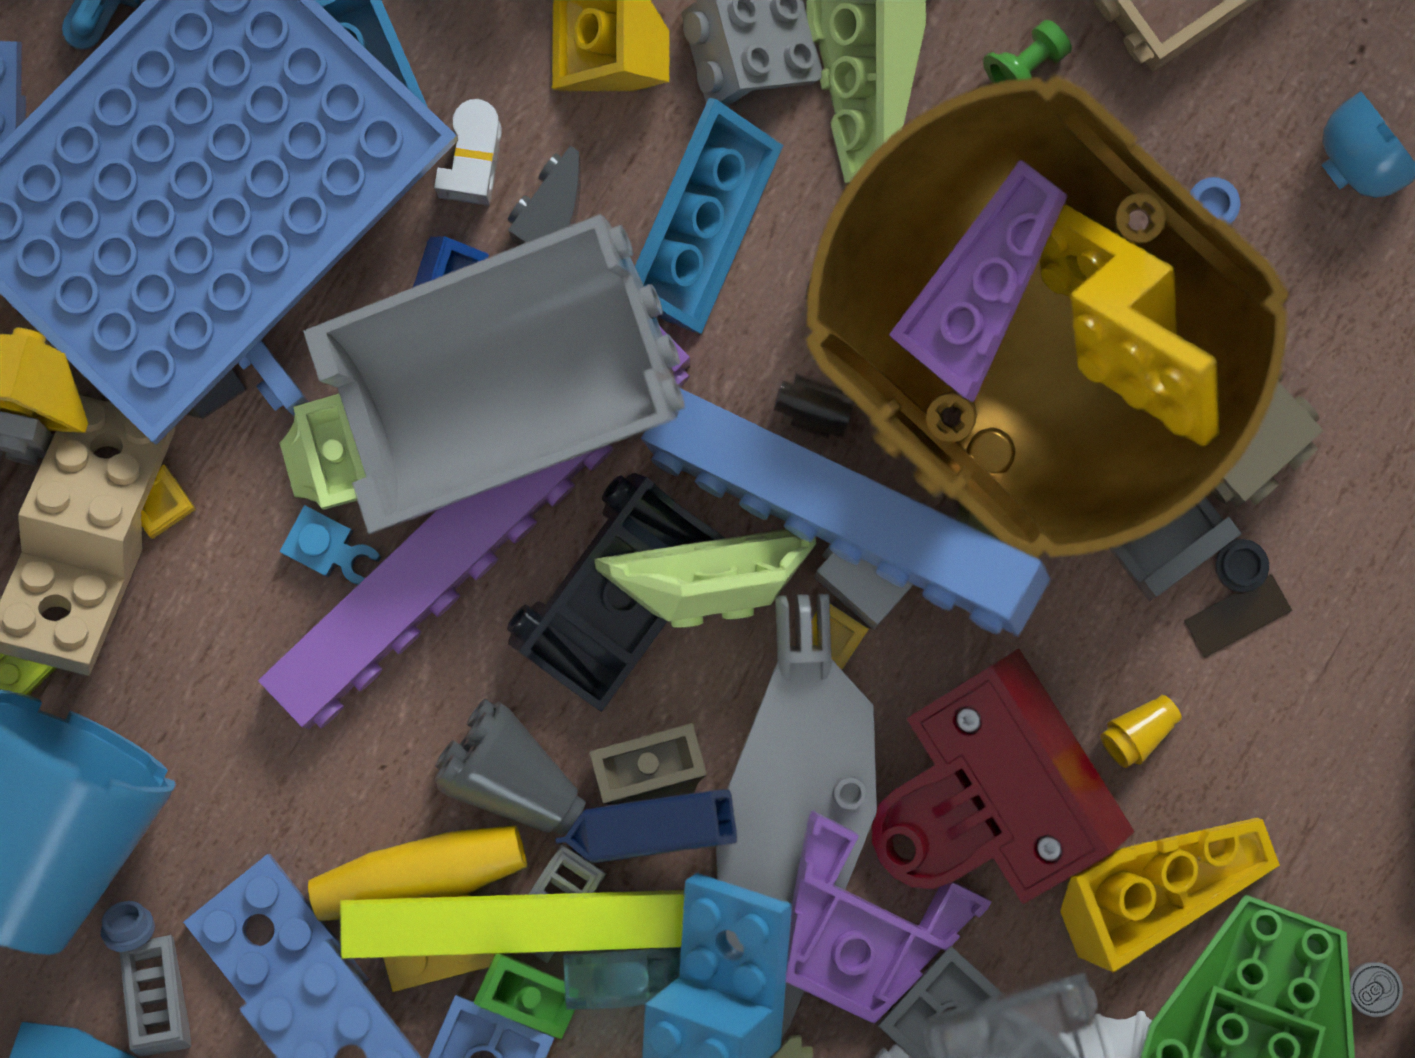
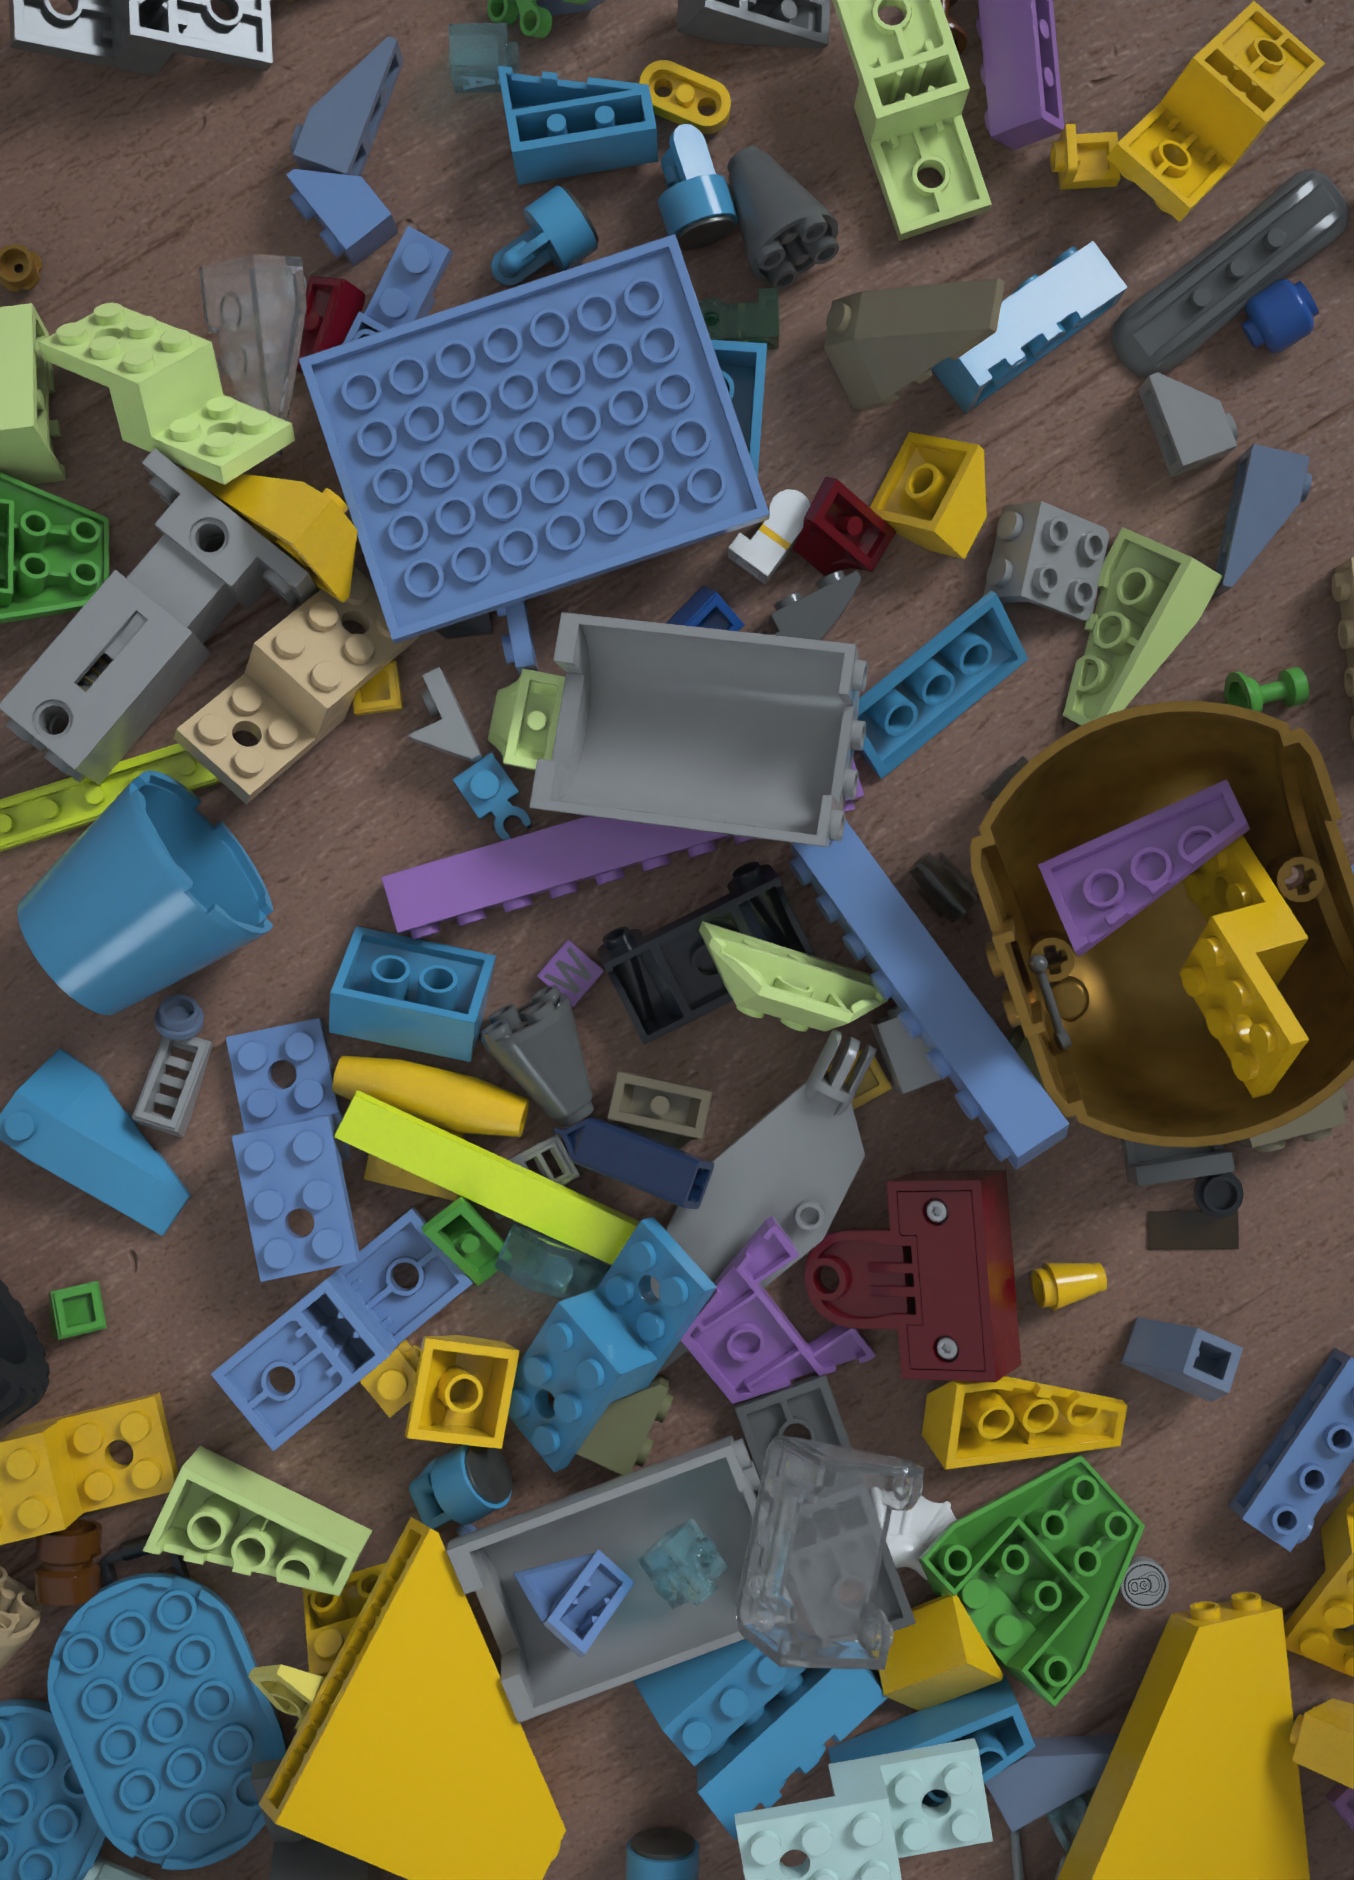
camera: 20 degrees right, 5 degrees up
(254, 508) = (452, 732): none -> light grey slope
(346, 782) = (411, 994): none -> dark azure slope
(494, 679) = (571, 972): none -> medium lavender tile
(536, 116) = (842, 531): none -> dark red slope
(938, 430) = (1038, 966): none -> dark grey hinge
(1290, 743) = (1182, 1357): none -> sand blue slope

